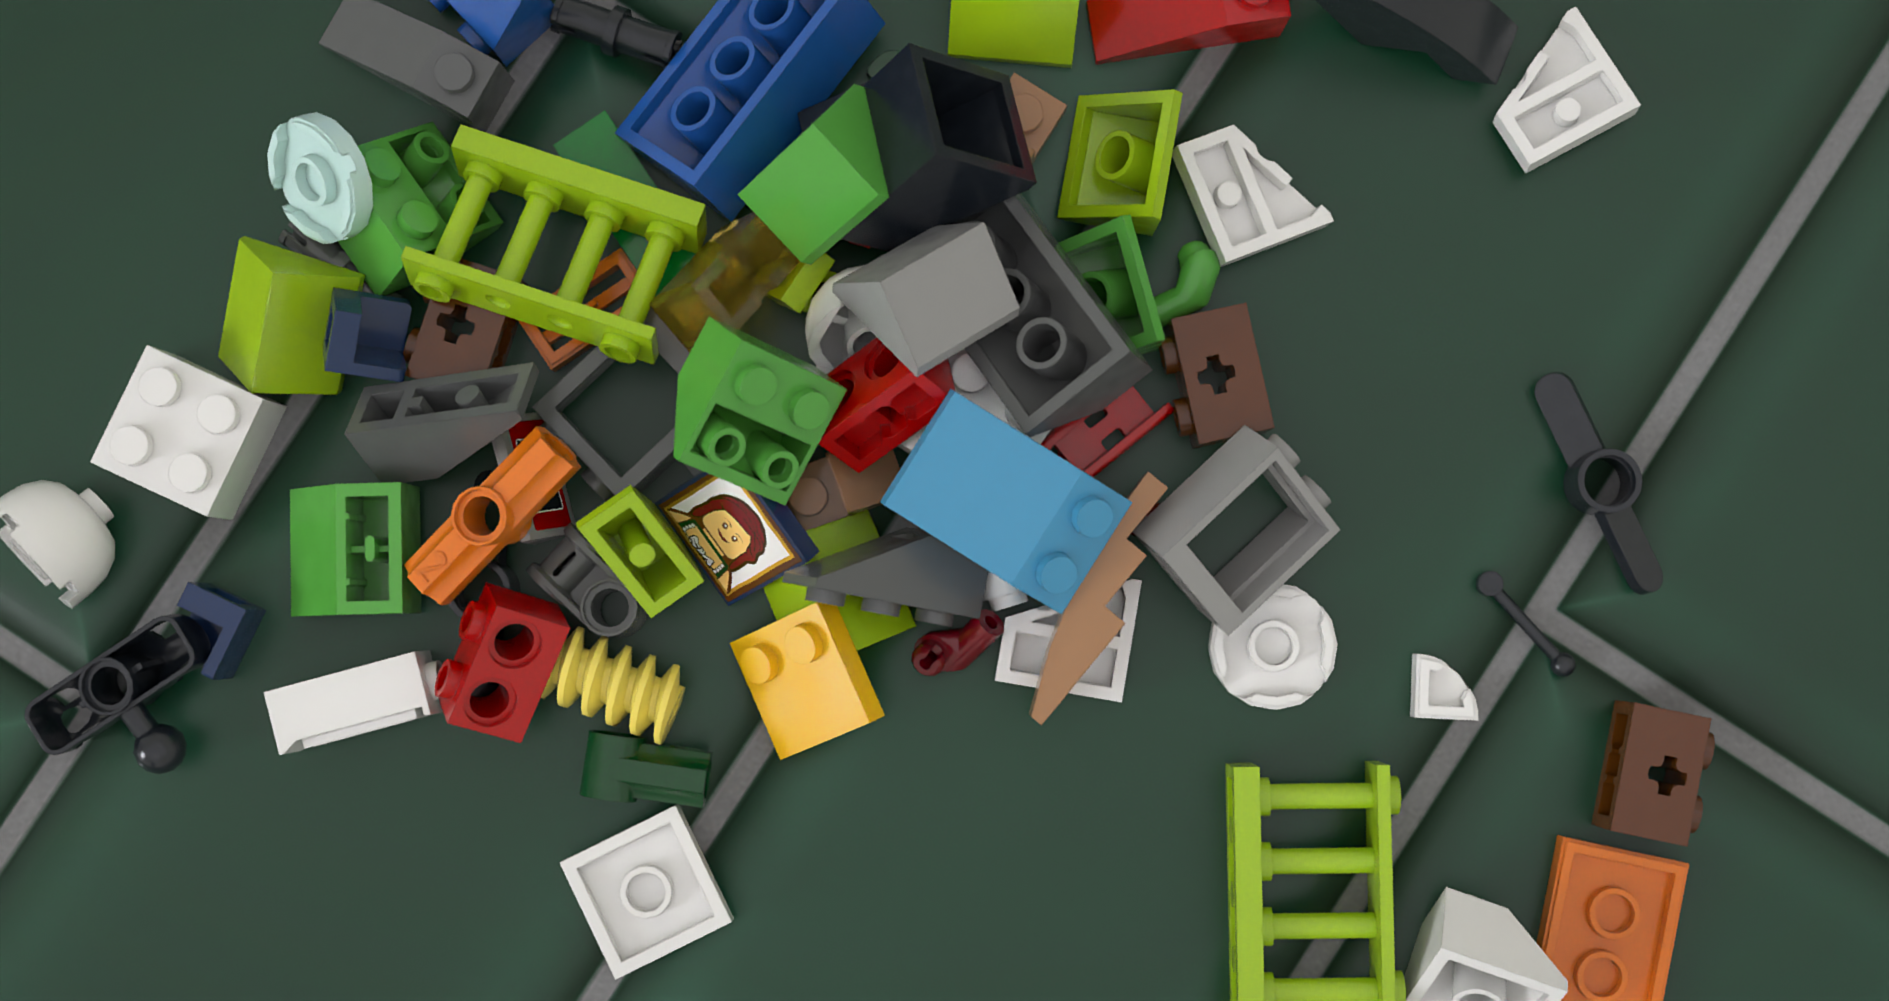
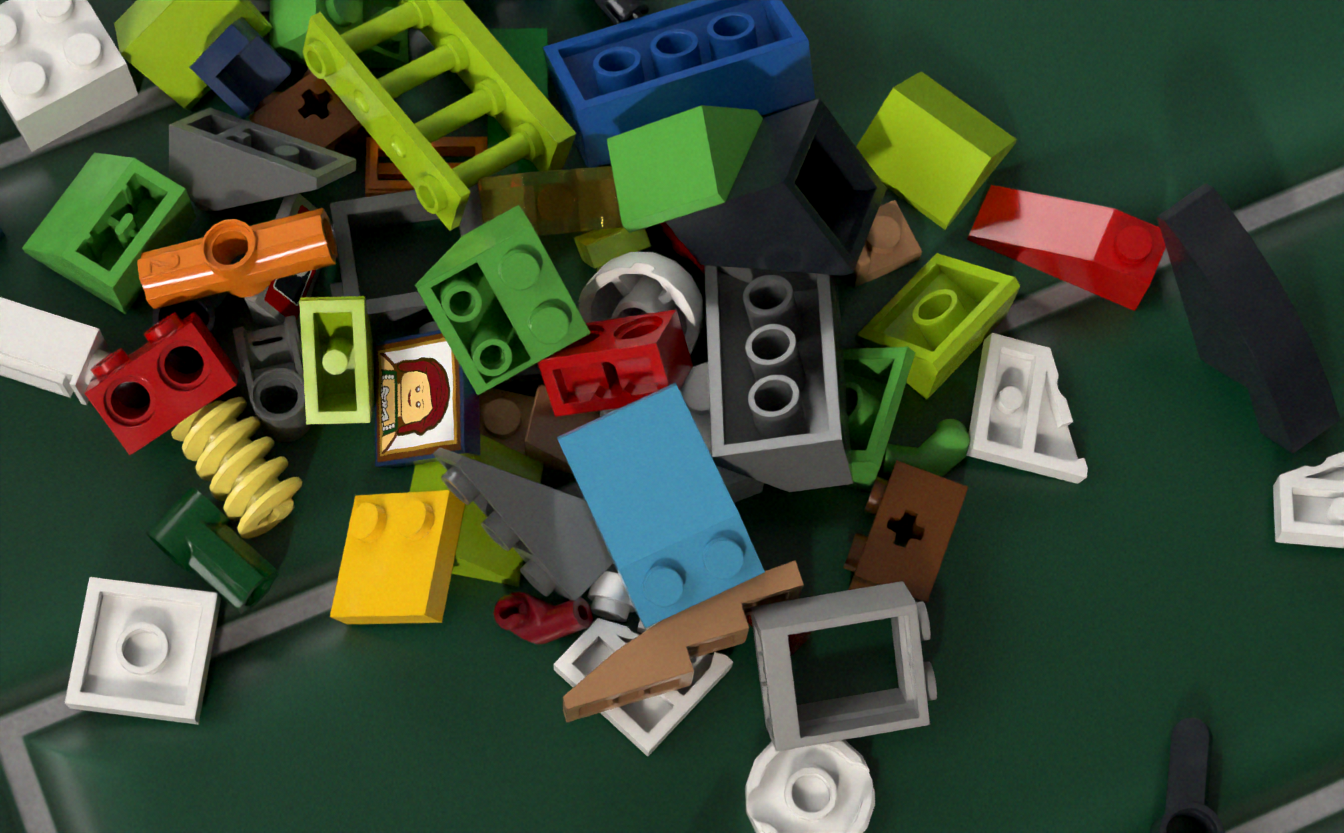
camera: 25 degrees right, 15 degrees down
(932, 294) = (710, 303): light grey slope -> none
(1083, 444) = (809, 520): red piece -> none

